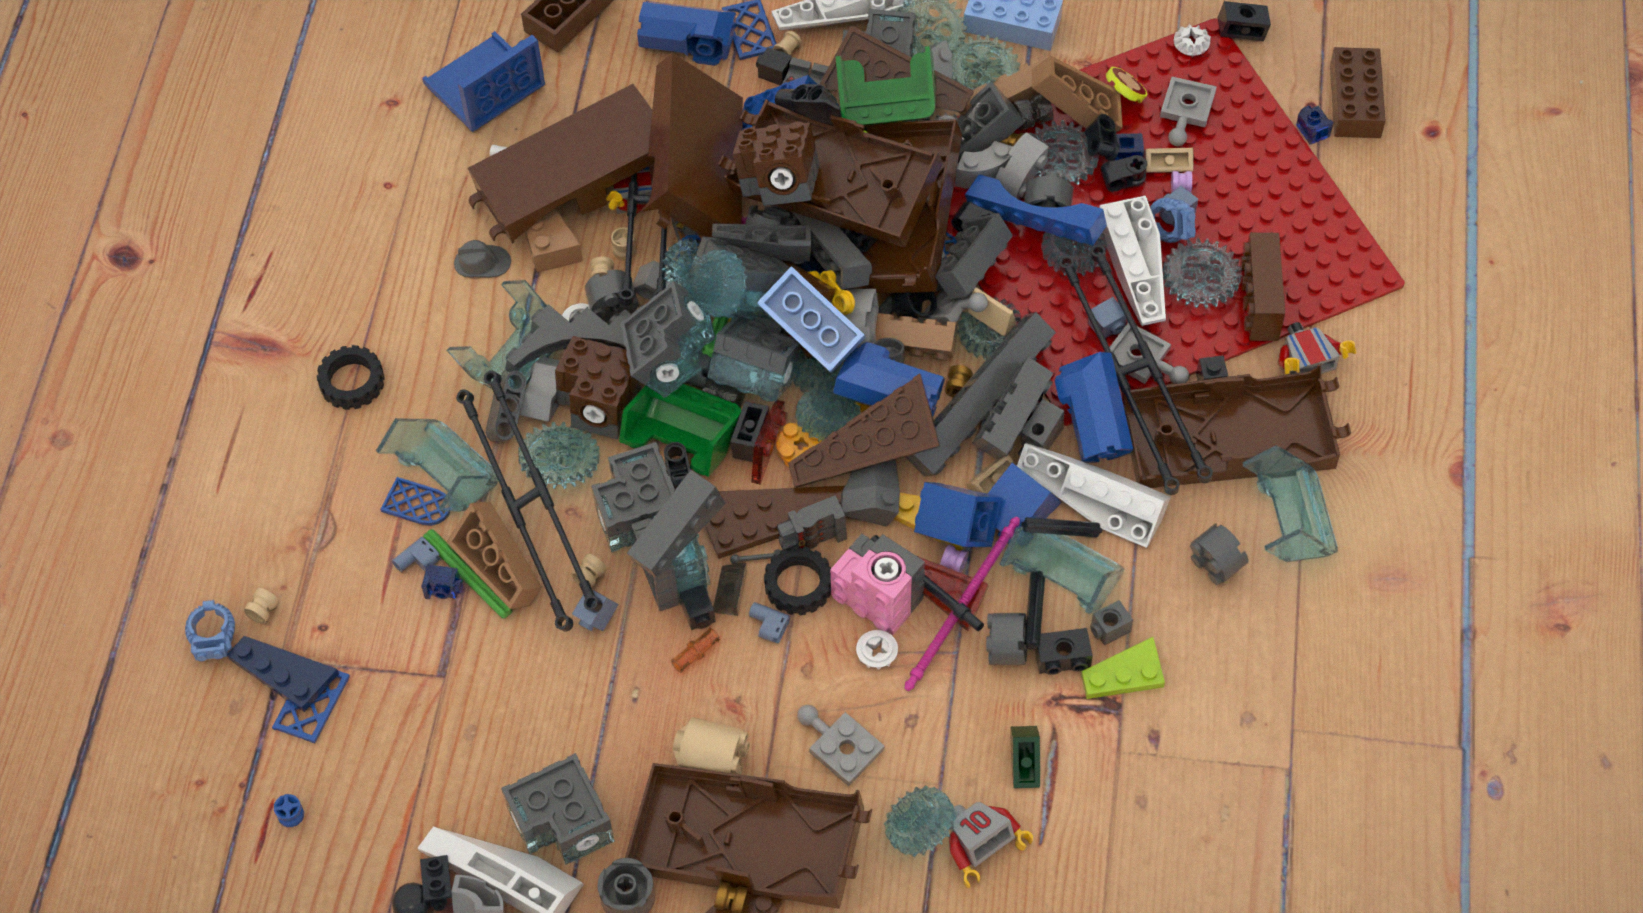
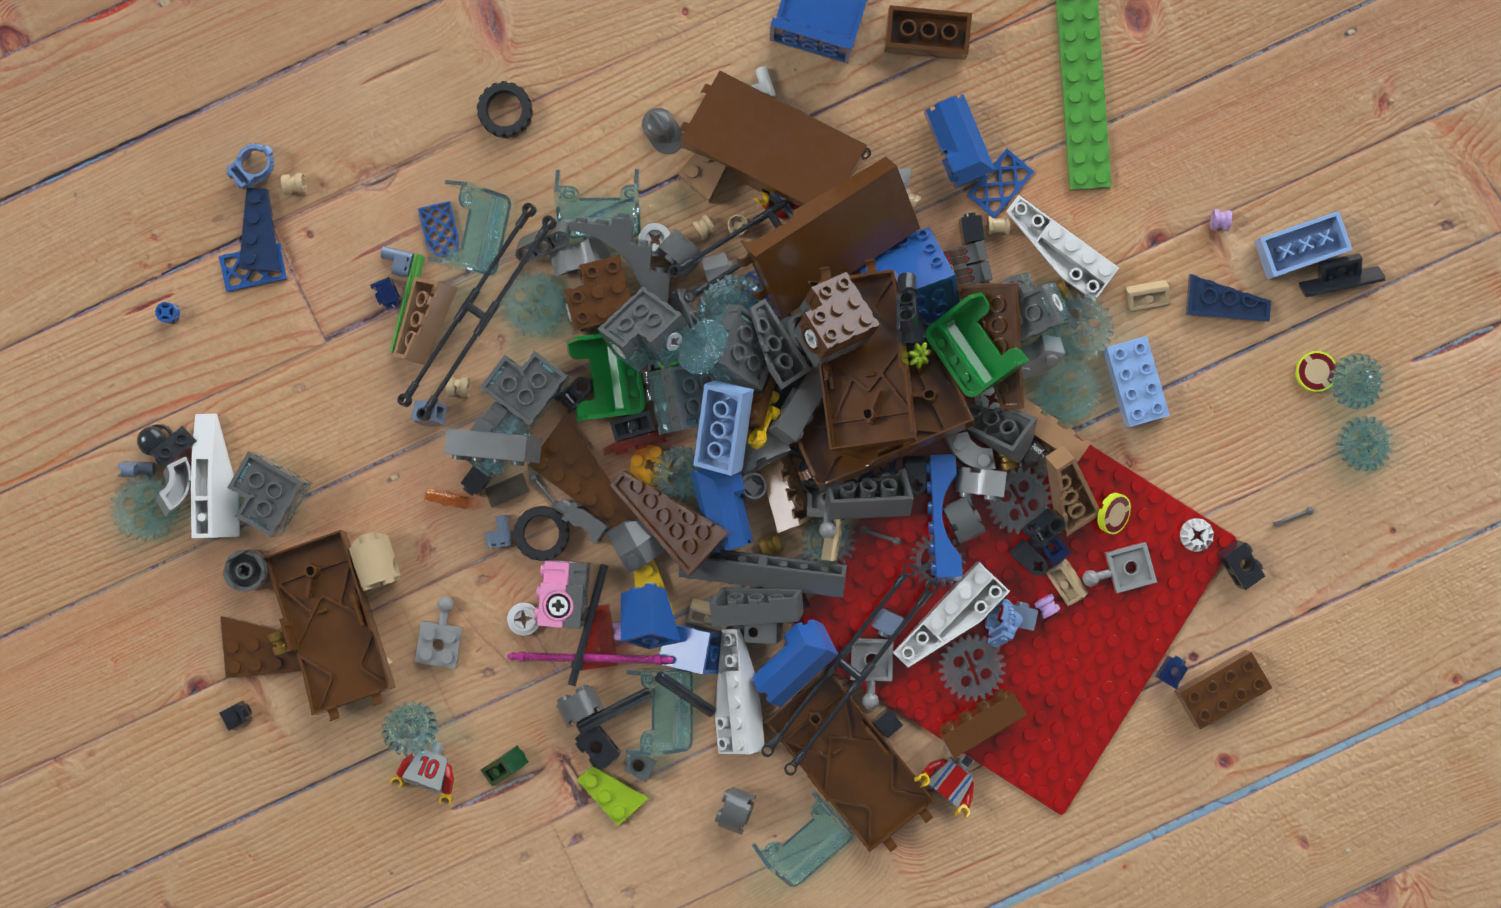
camera: 60 degrees right, 30 degrees up
(1001, 294) = (896, 541): none -> dark grey hinge

